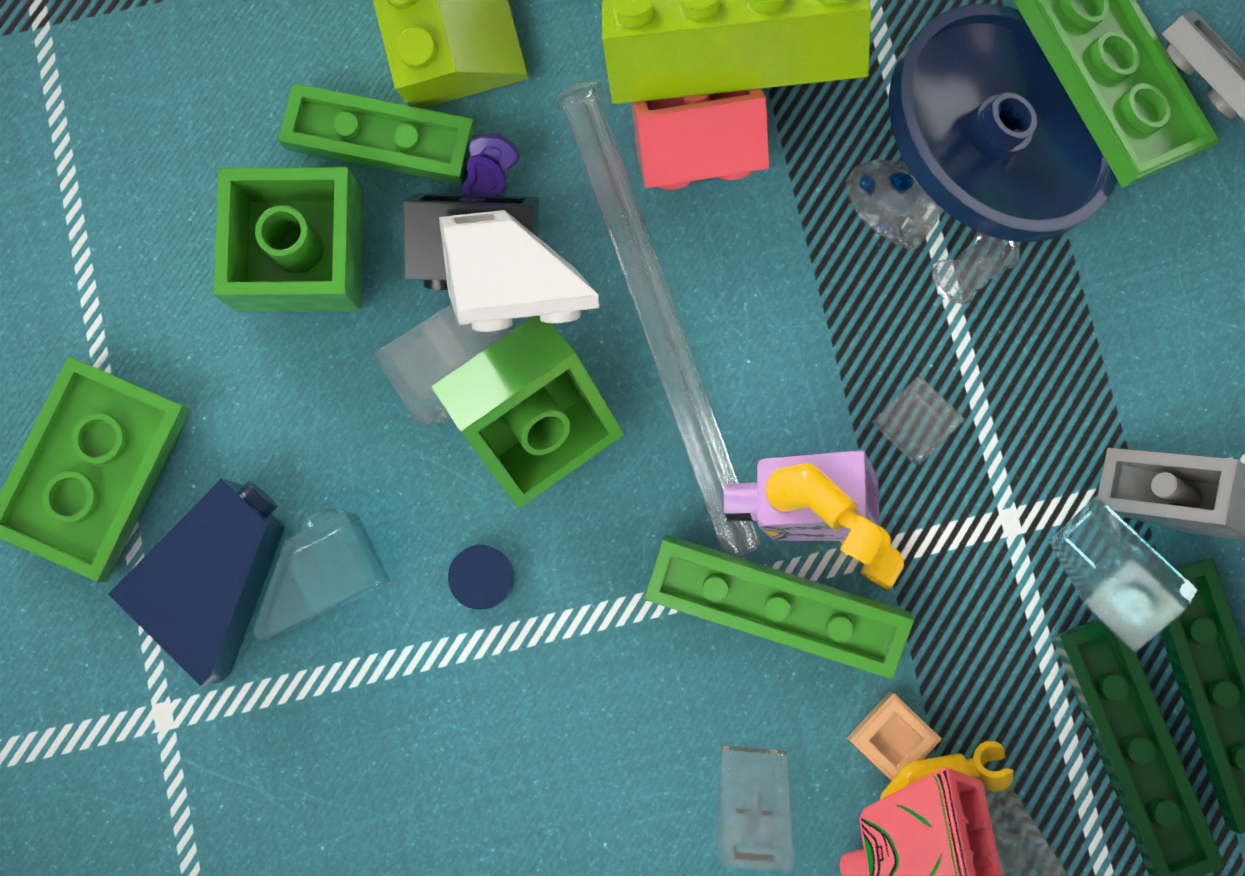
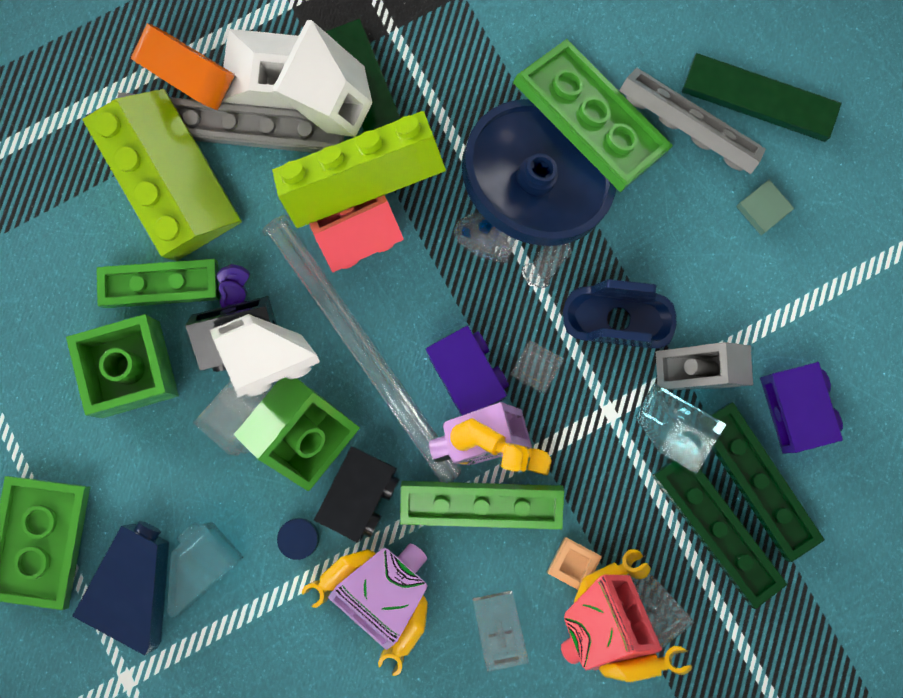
camera: 15 degrees left, 0 degrees up
(585, 702) = (380, 596): none -> torso
(591, 535) = (357, 494): none -> black brick
(810, 393) = (466, 372): none -> dark purple brick
(1114, 389) = (650, 314): none -> dark blue piece

